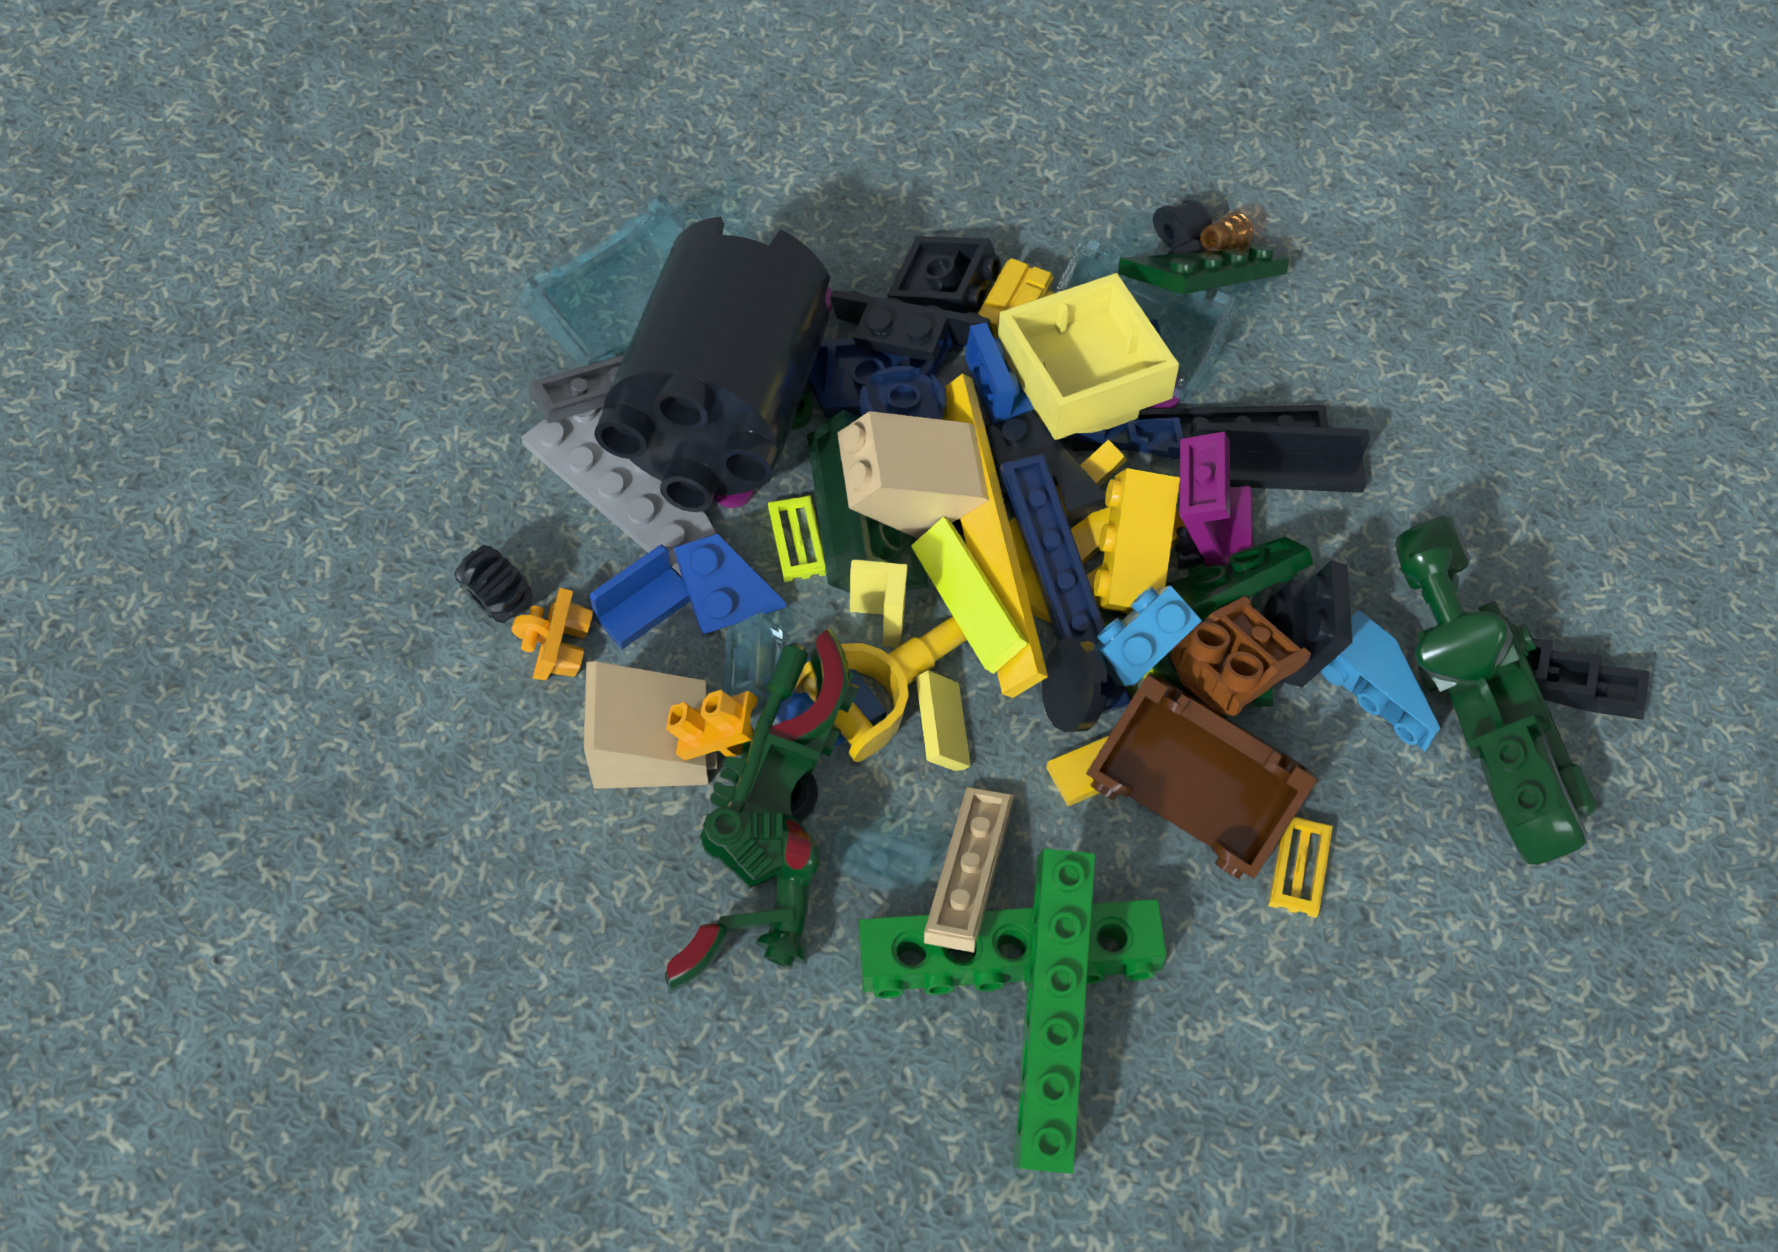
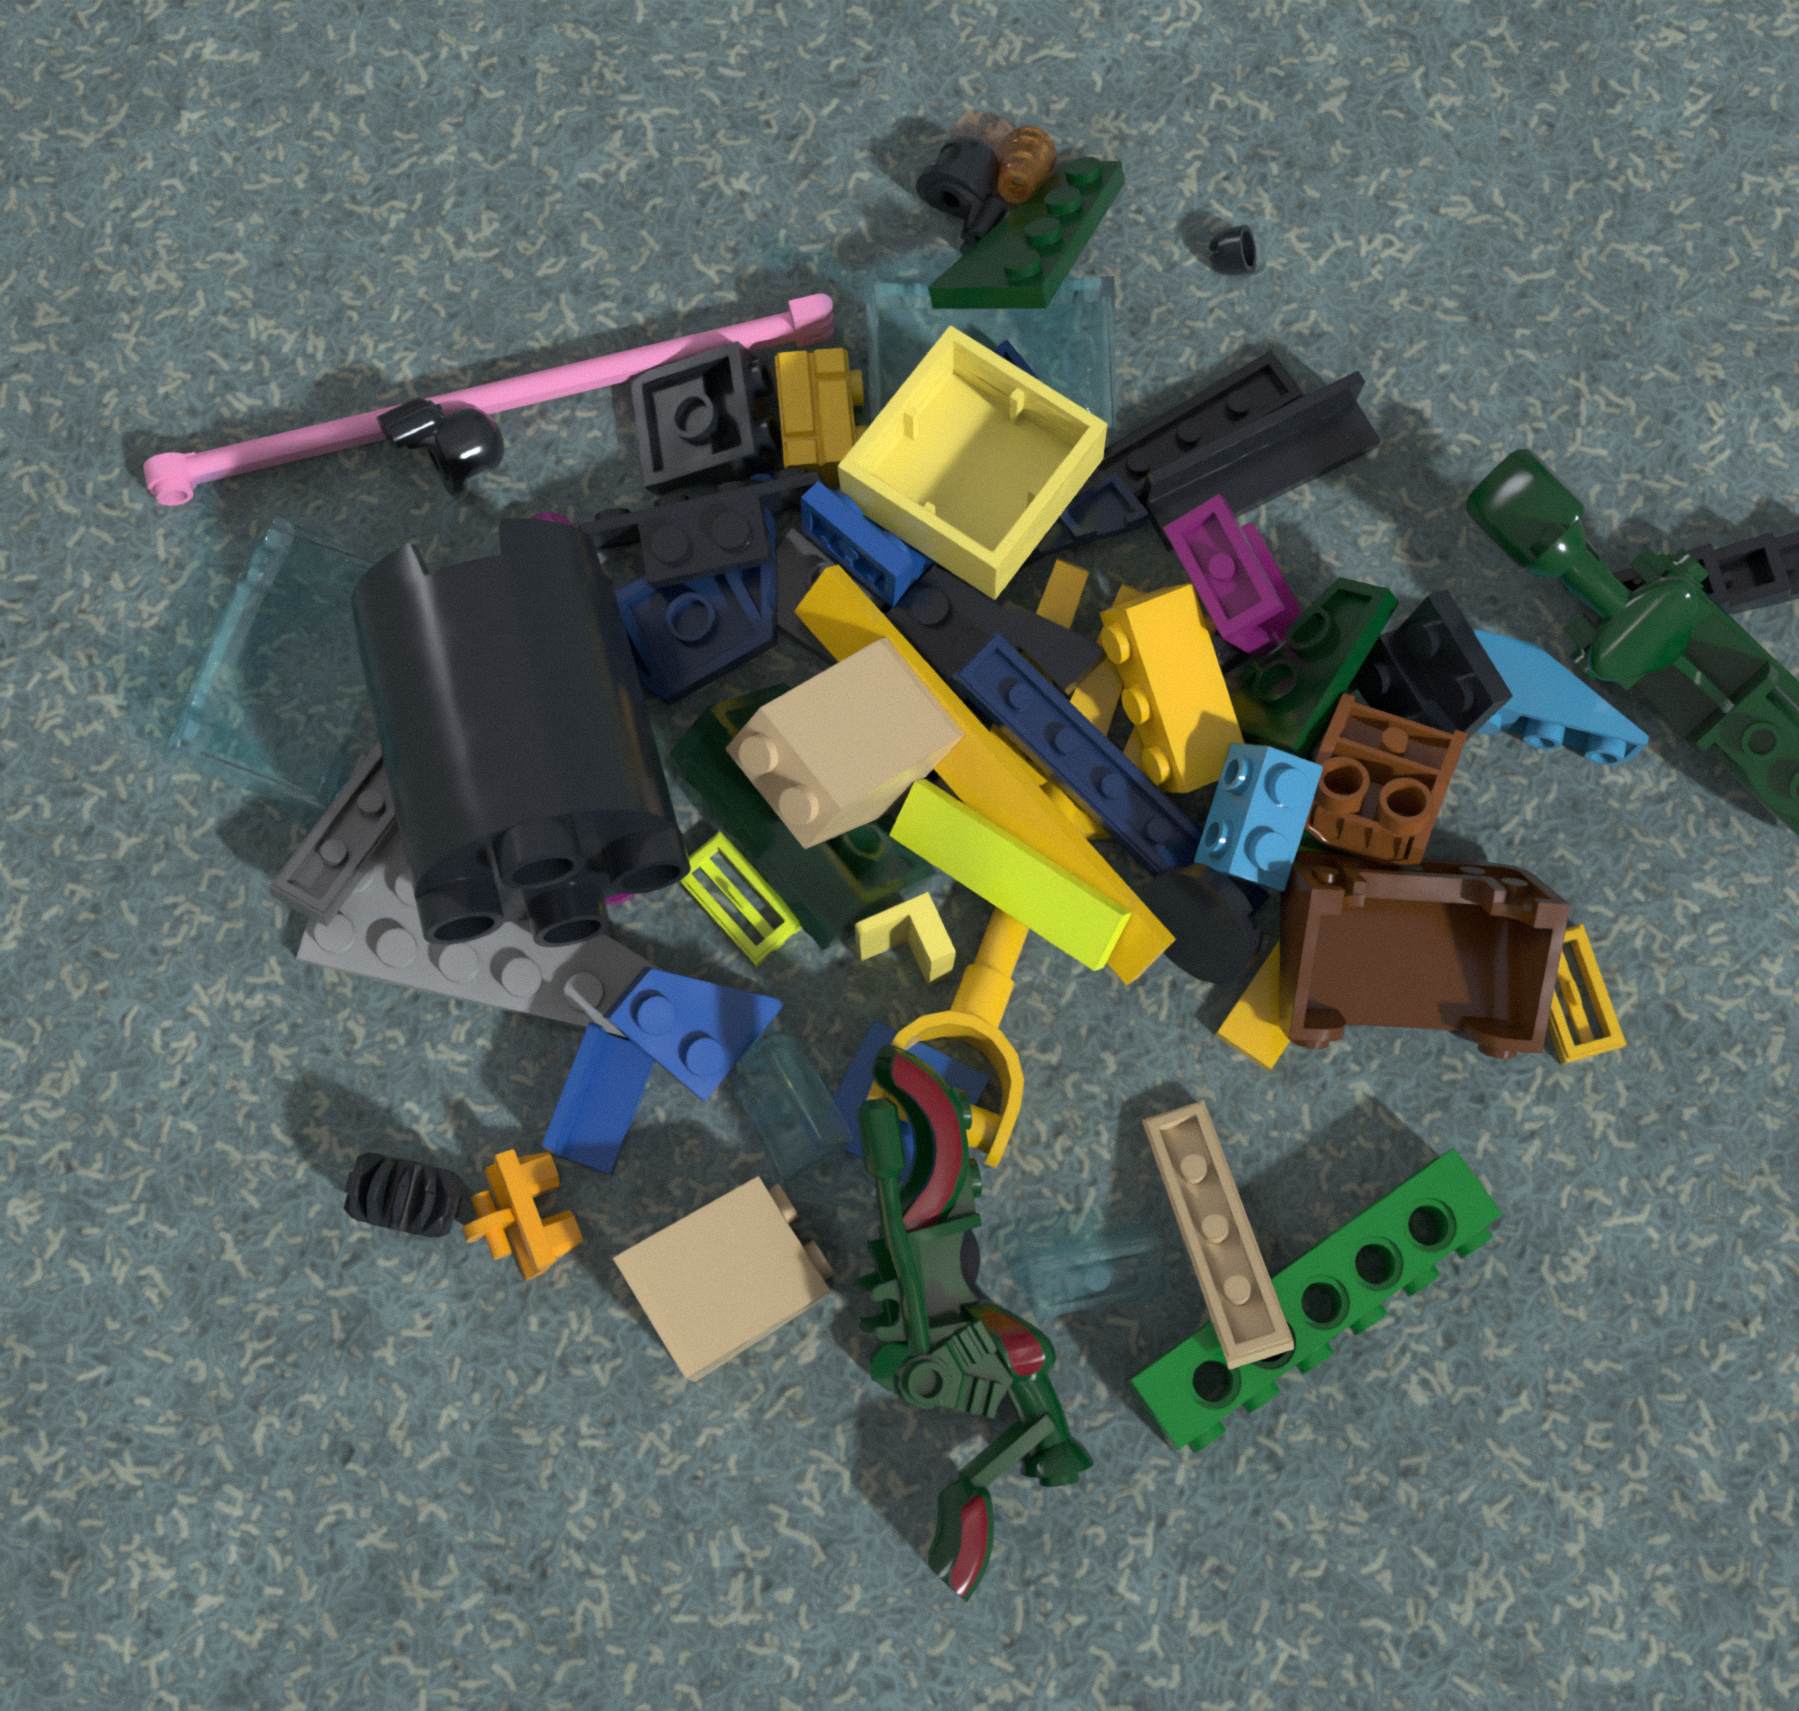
camera: 30 degrees left, 15 degrees up
(625, 166) = (176, 475): none -> bright pink hinge
(717, 725) = (821, 1248): light orange hips -> none
(794, 217) = (456, 442): none -> black piece
(904, 392) = (769, 644): dark blue tile -> none
(943, 721) = (1066, 1052): light yellow tile -> none
(1054, 1012) = (1426, 1367): green brick -> none
(1333, 337) = (1234, 251): none -> black hinge

